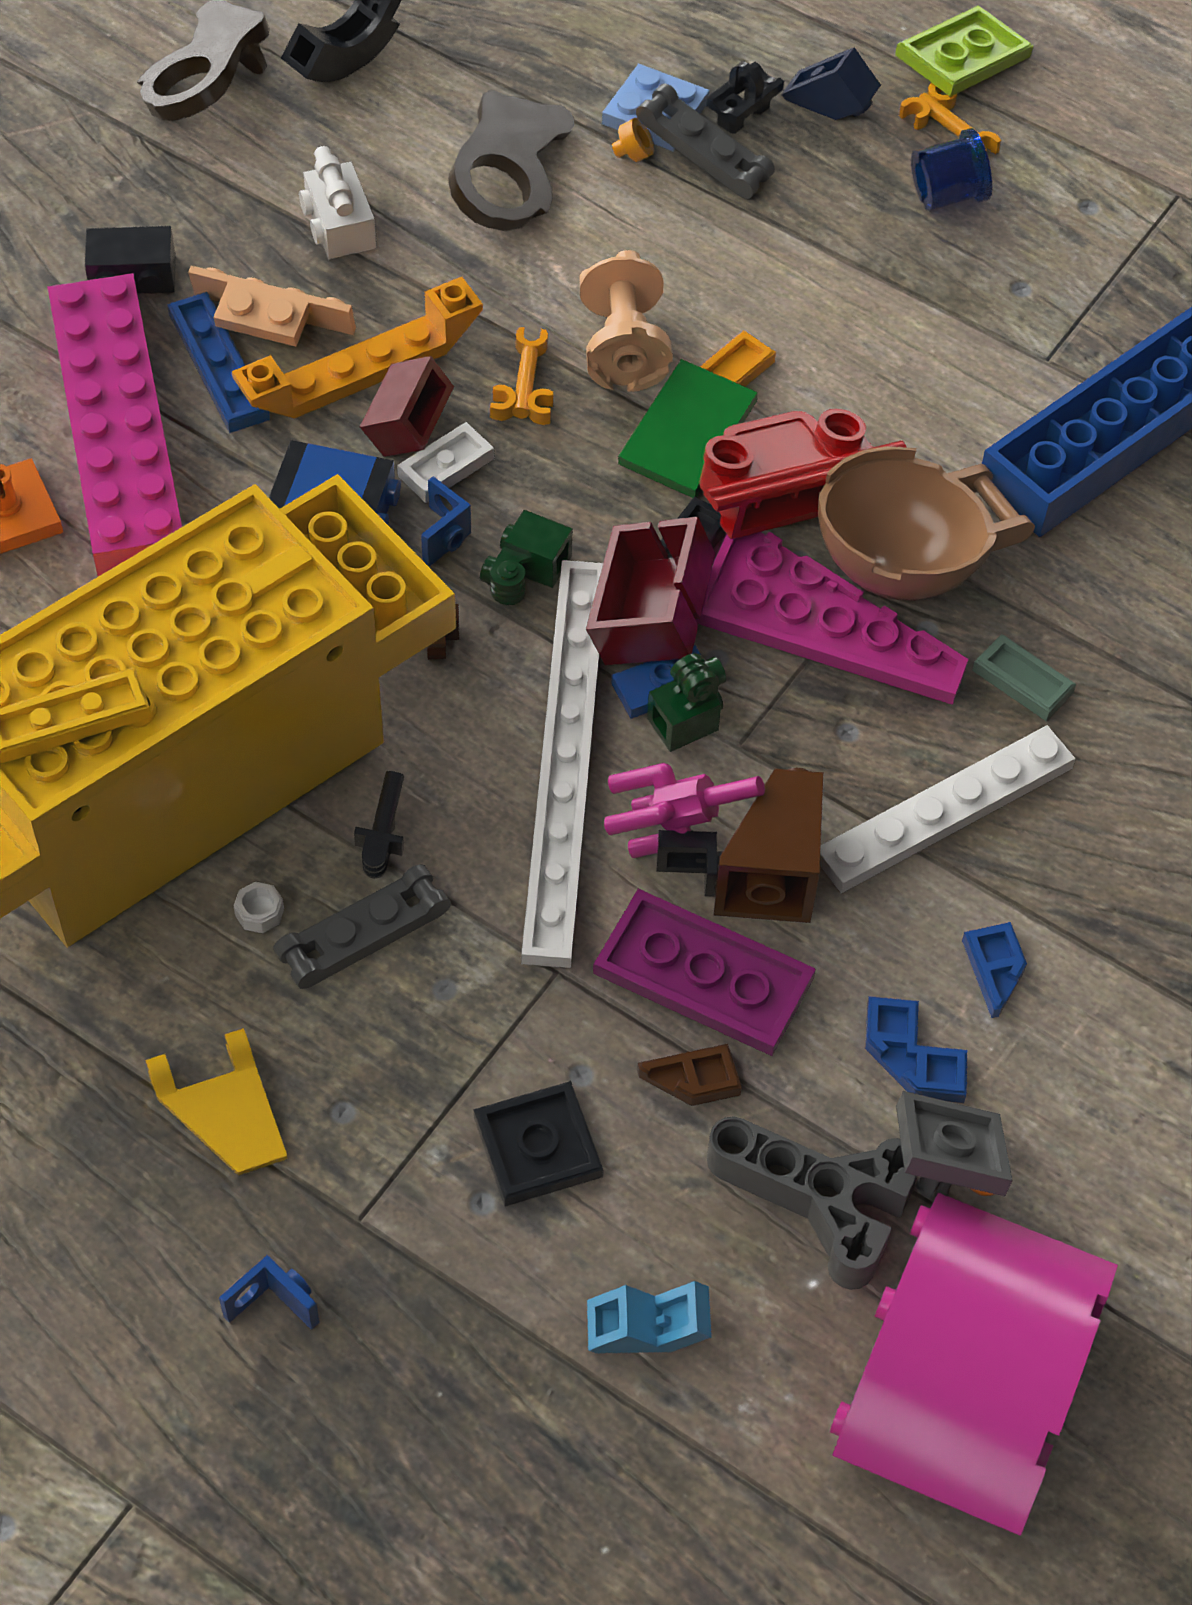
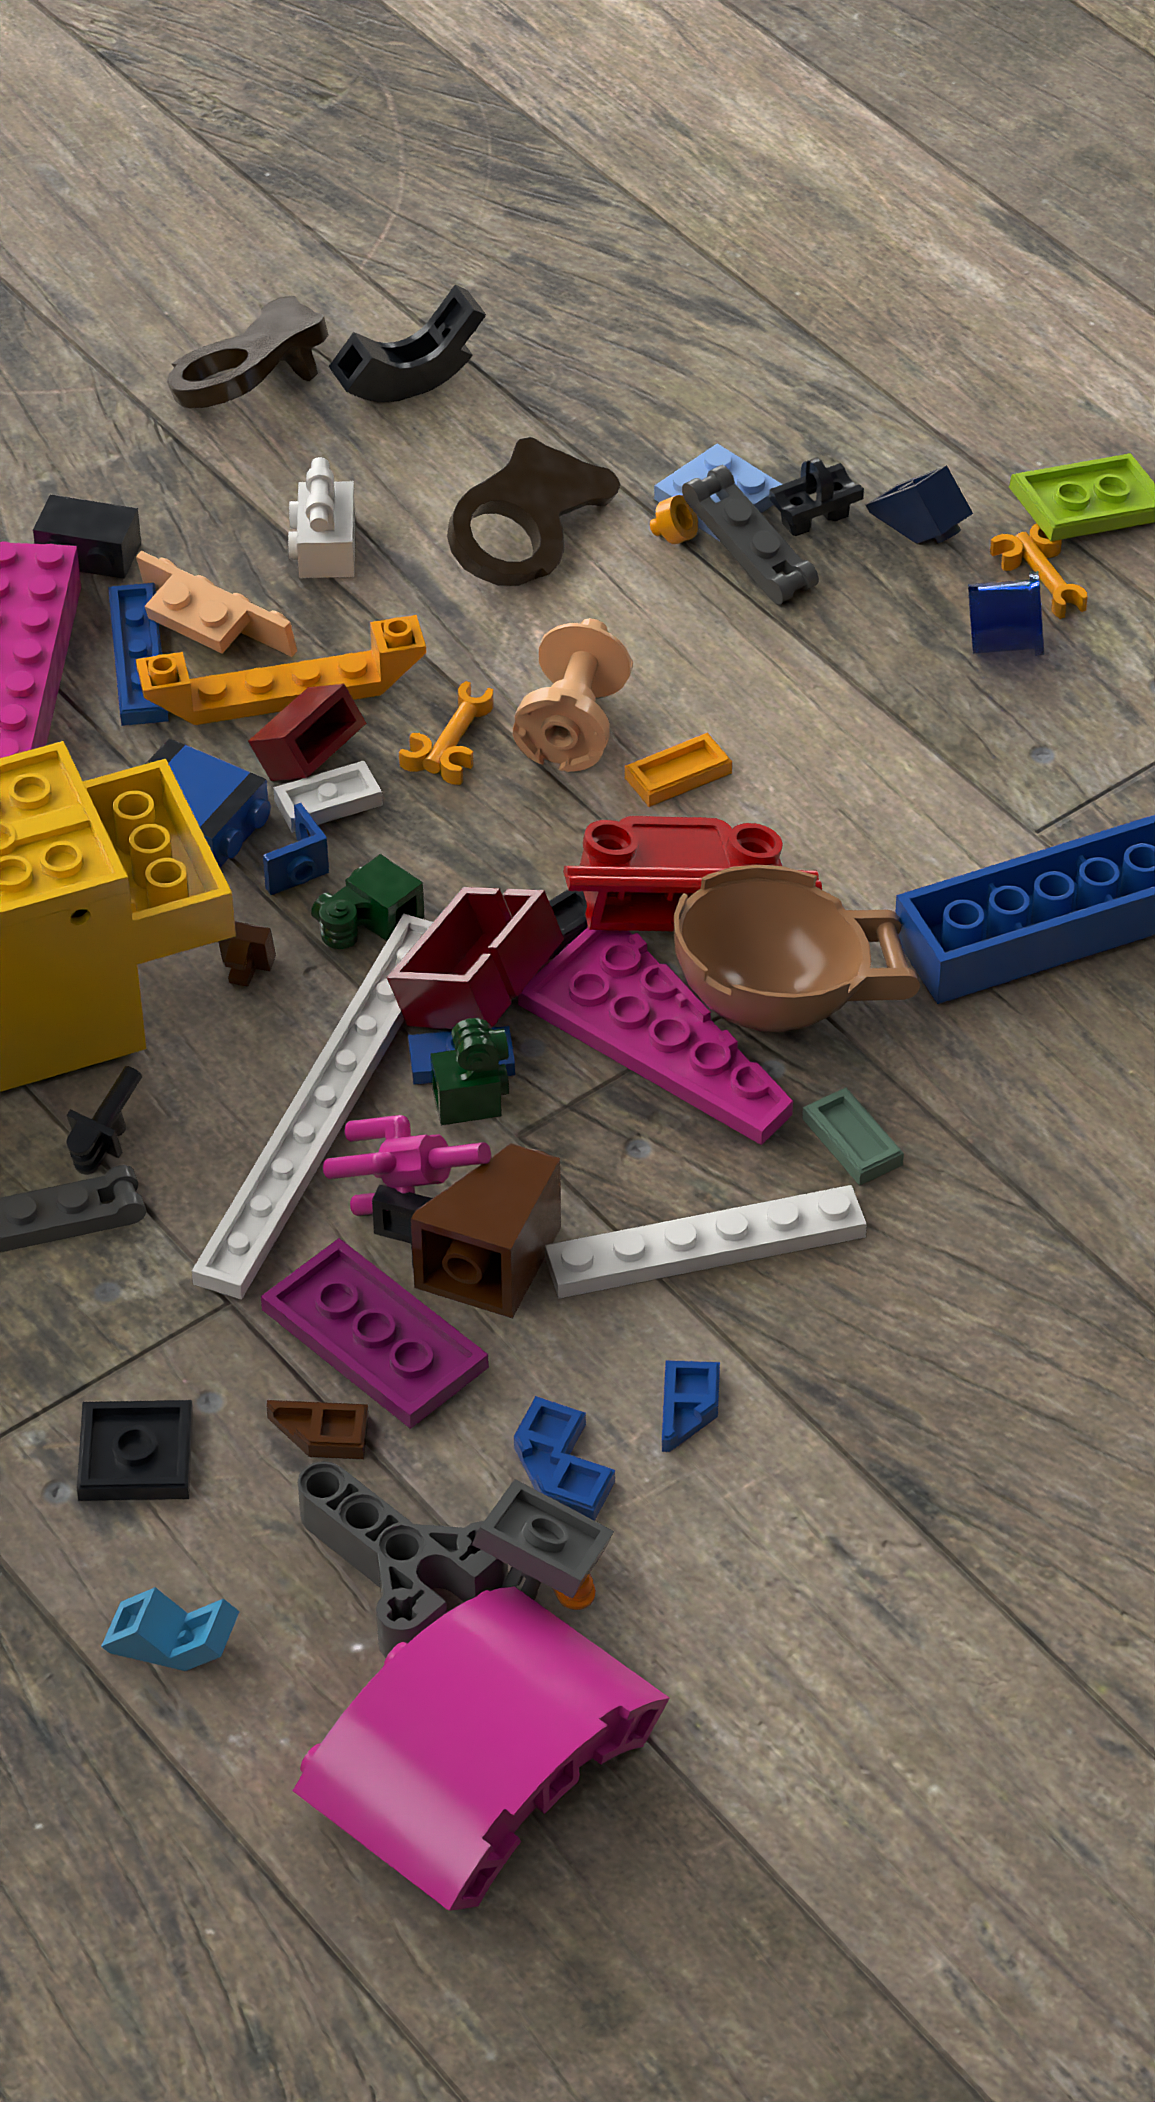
camera: 20 degrees right, 10 degrees down
(680, 423) = (607, 790): green tile -> none

